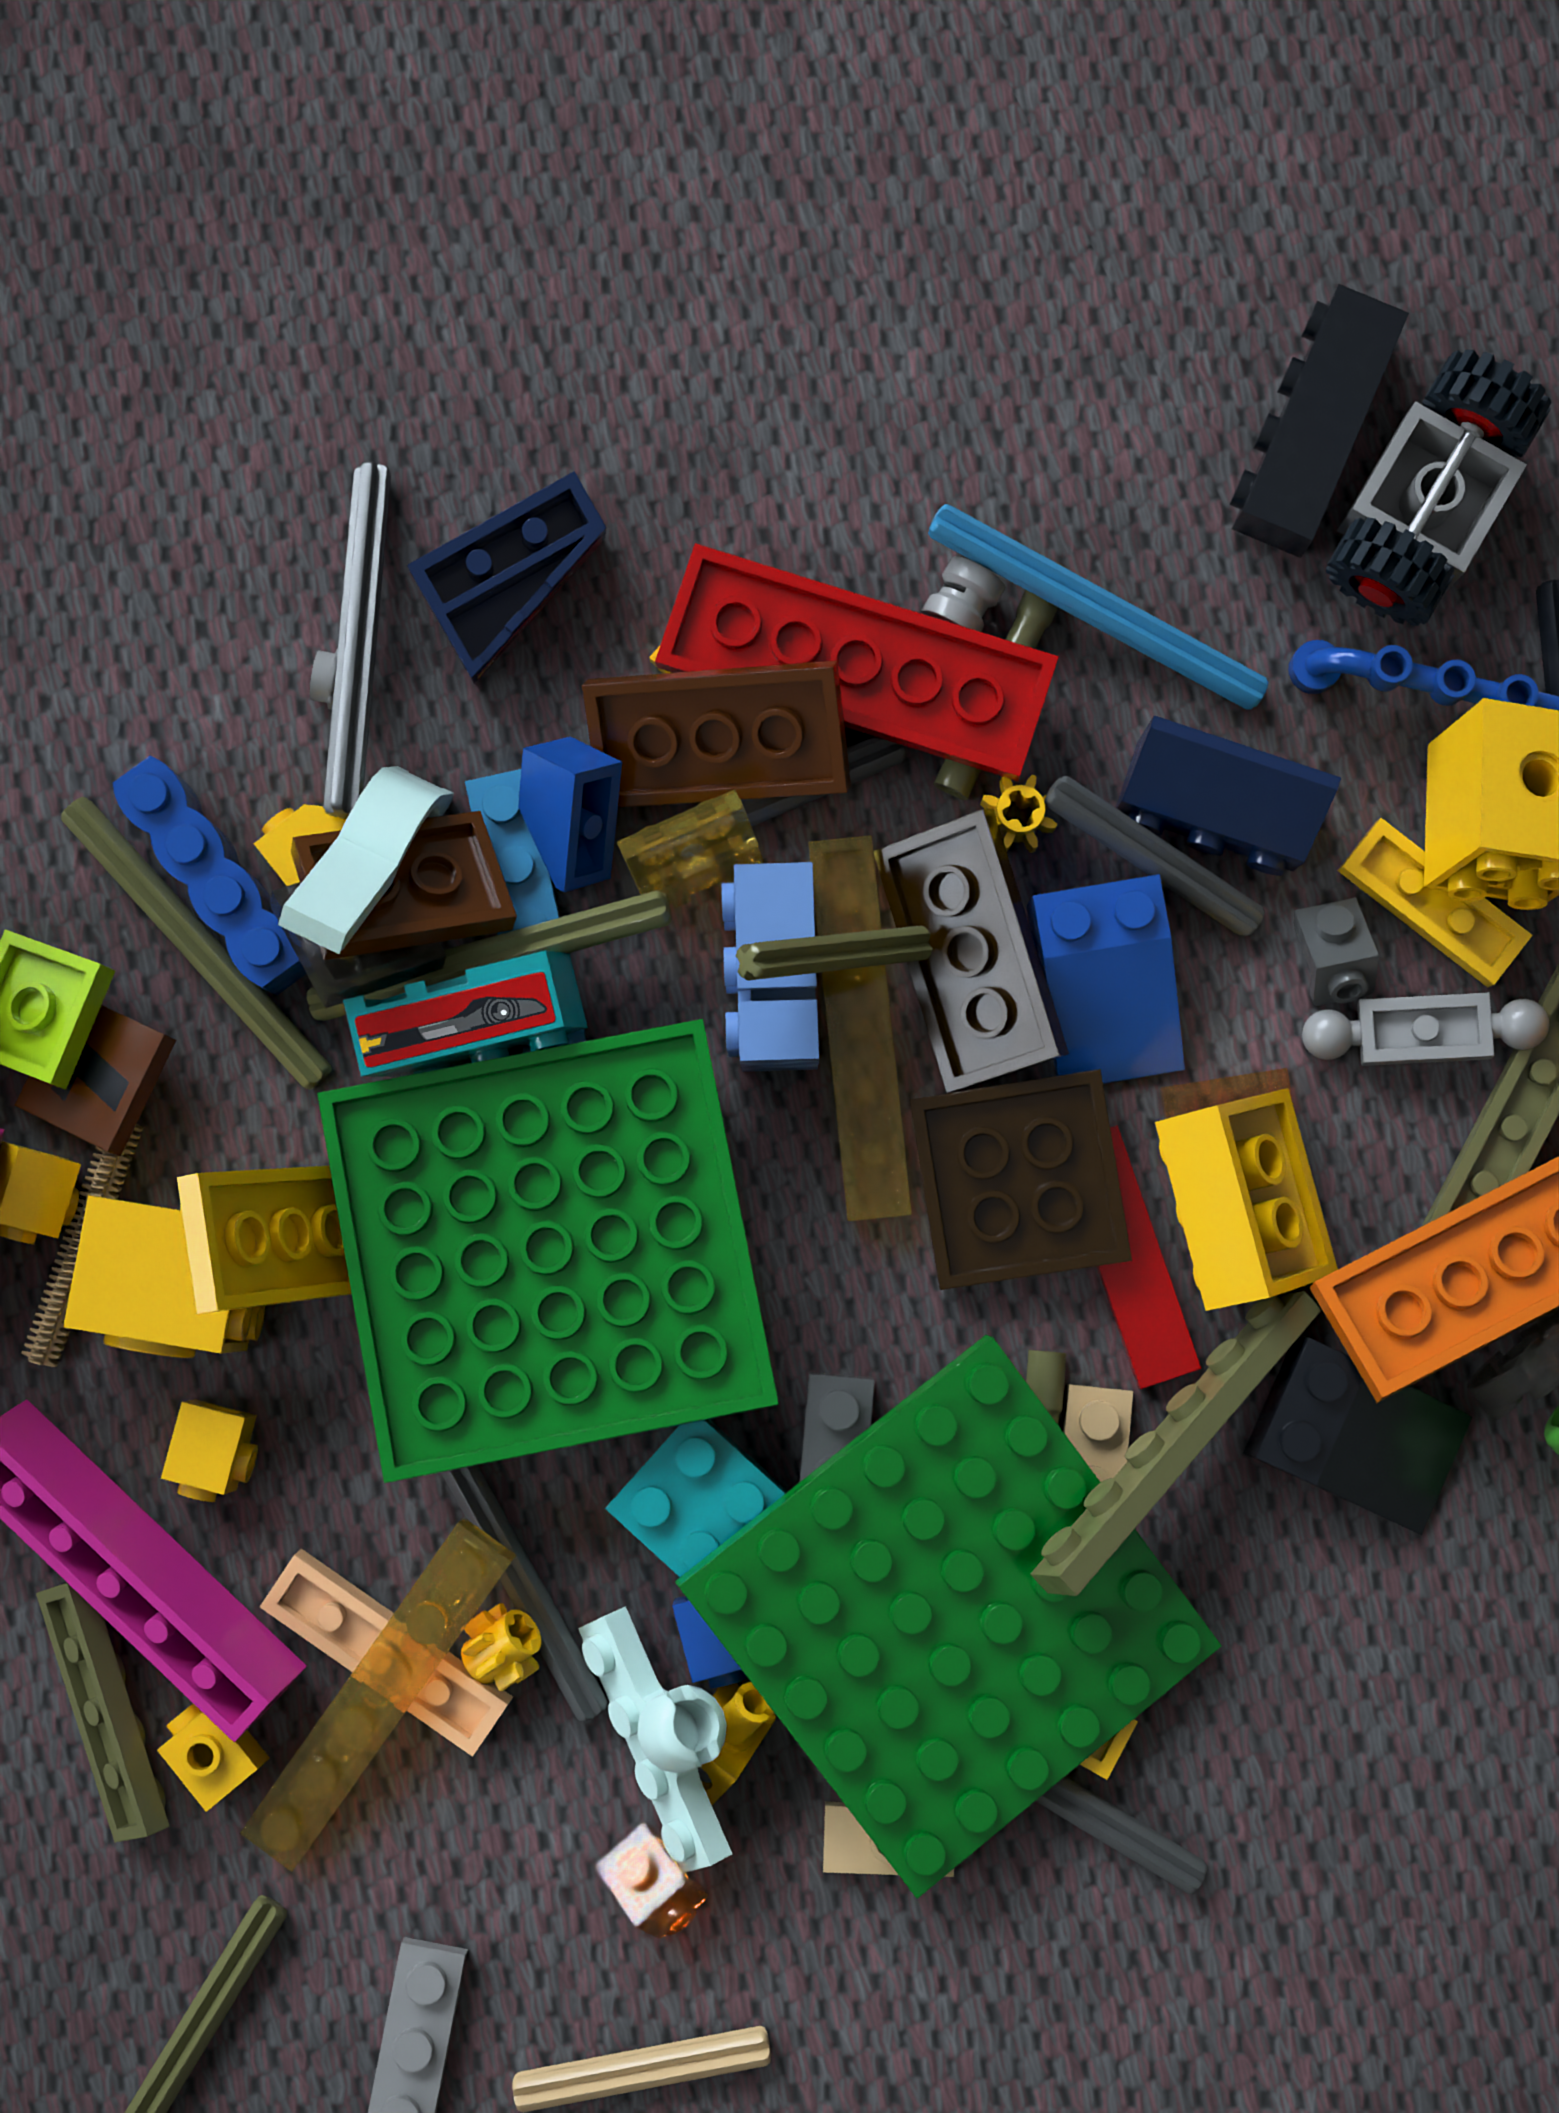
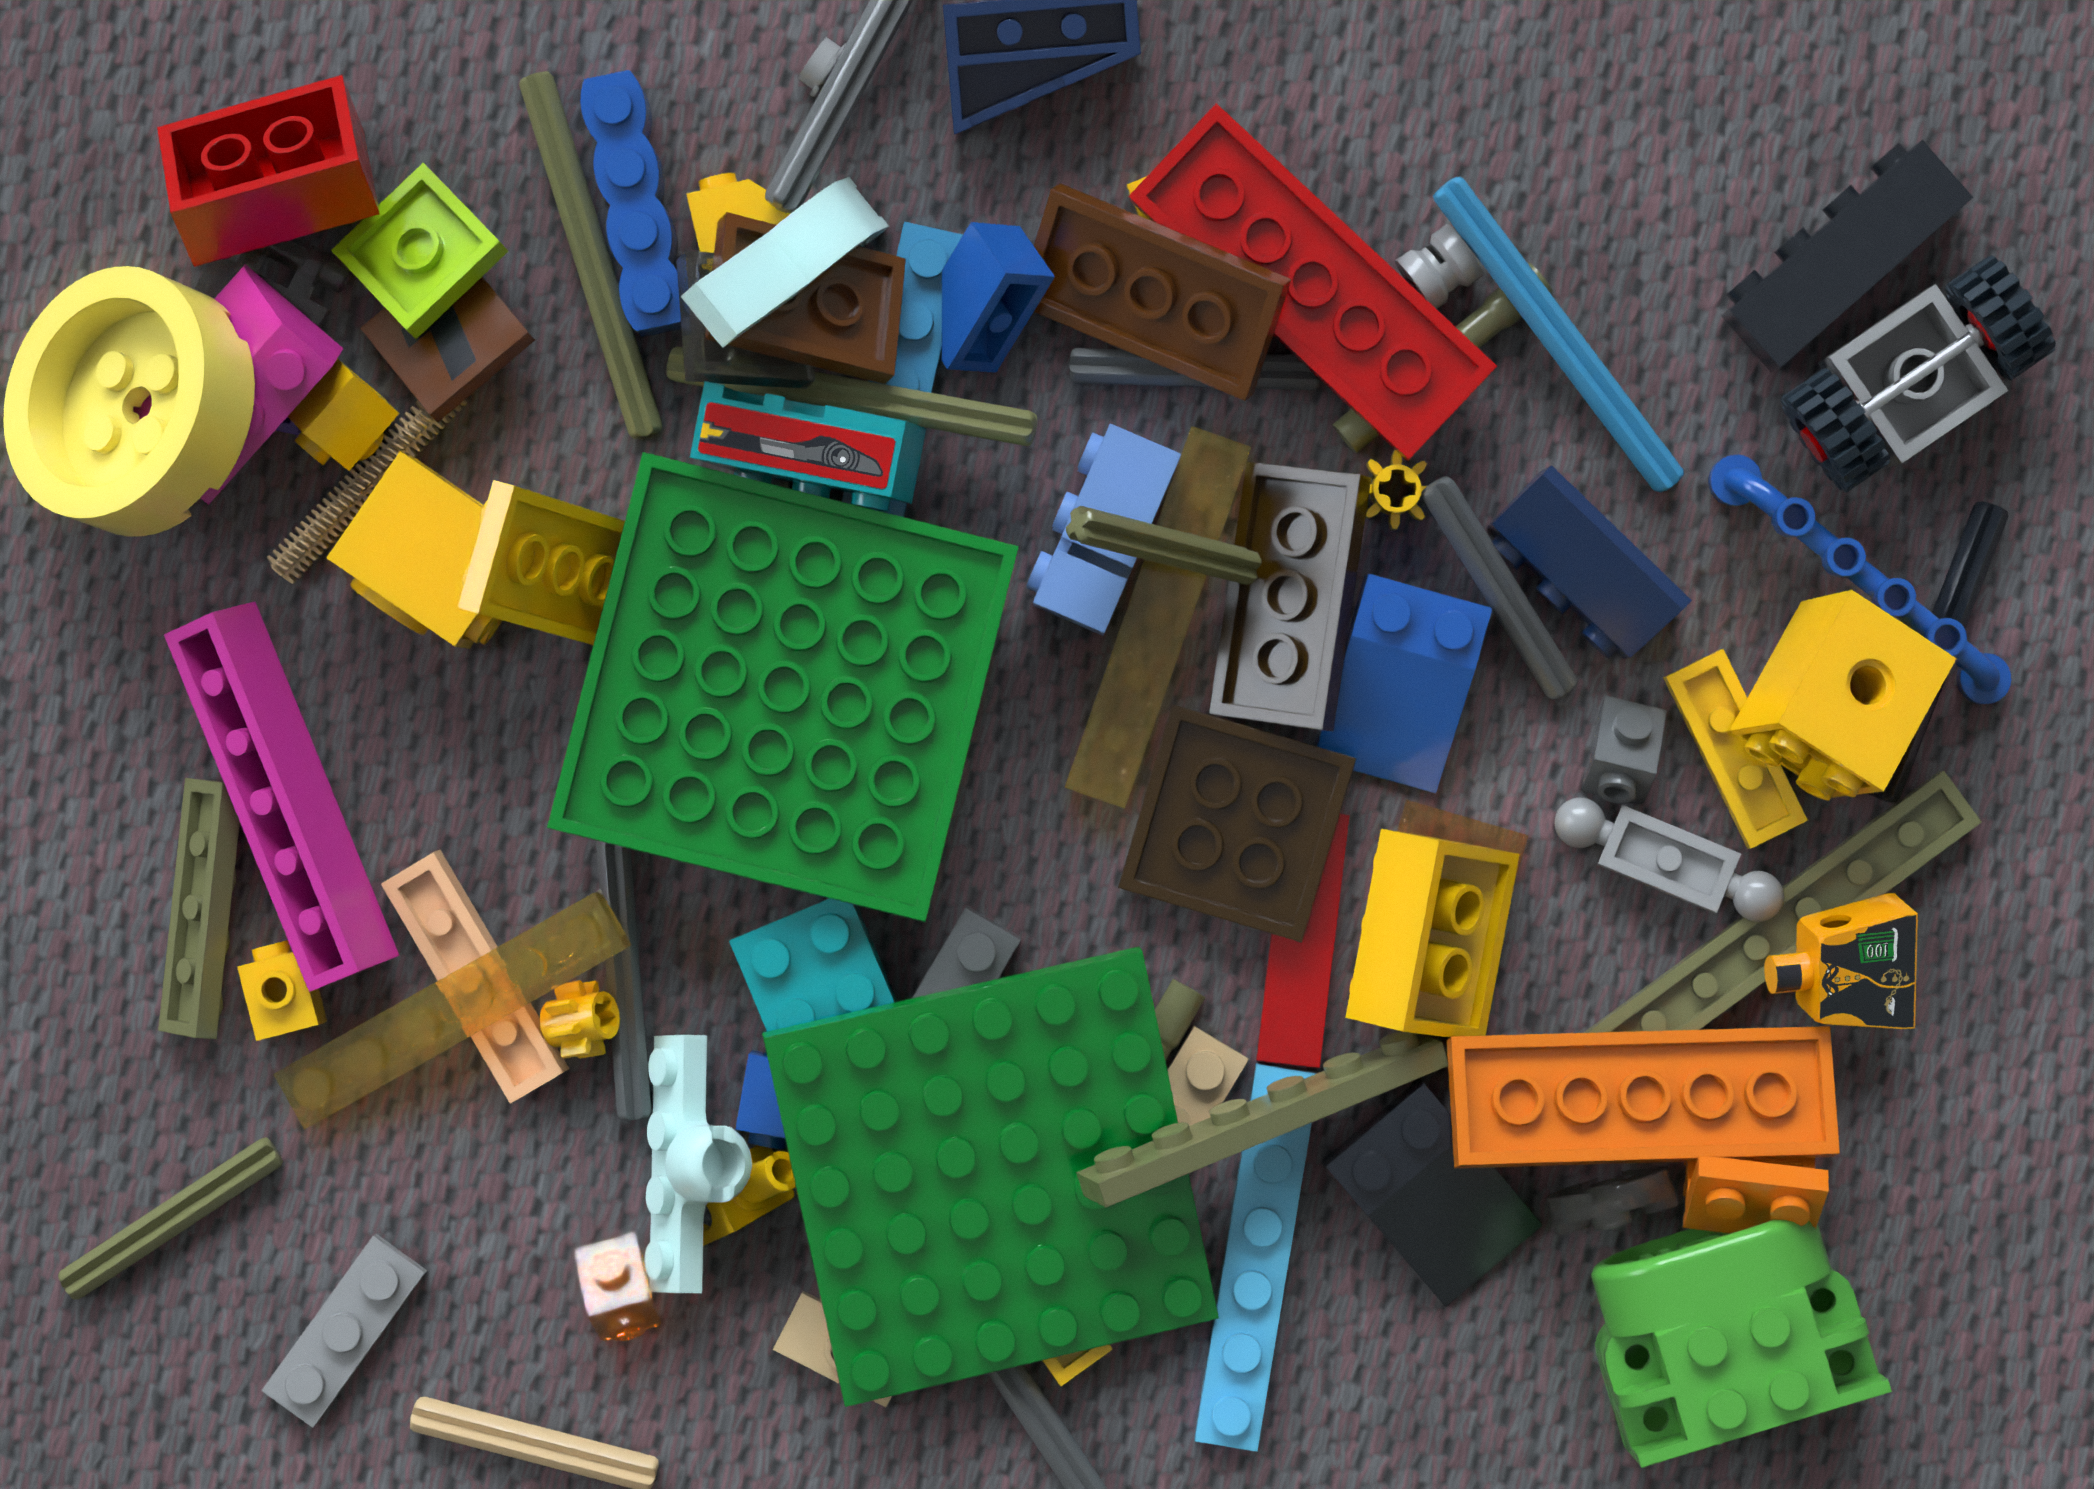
camera: 25 degrees right, 5 degrees up
(210, 1450) = (399, 724): yellow brick -> none
(692, 849) = (1080, 386): clear yellow plate -> none
(1235, 1599) = (1252, 1282): none -> medium azure plate

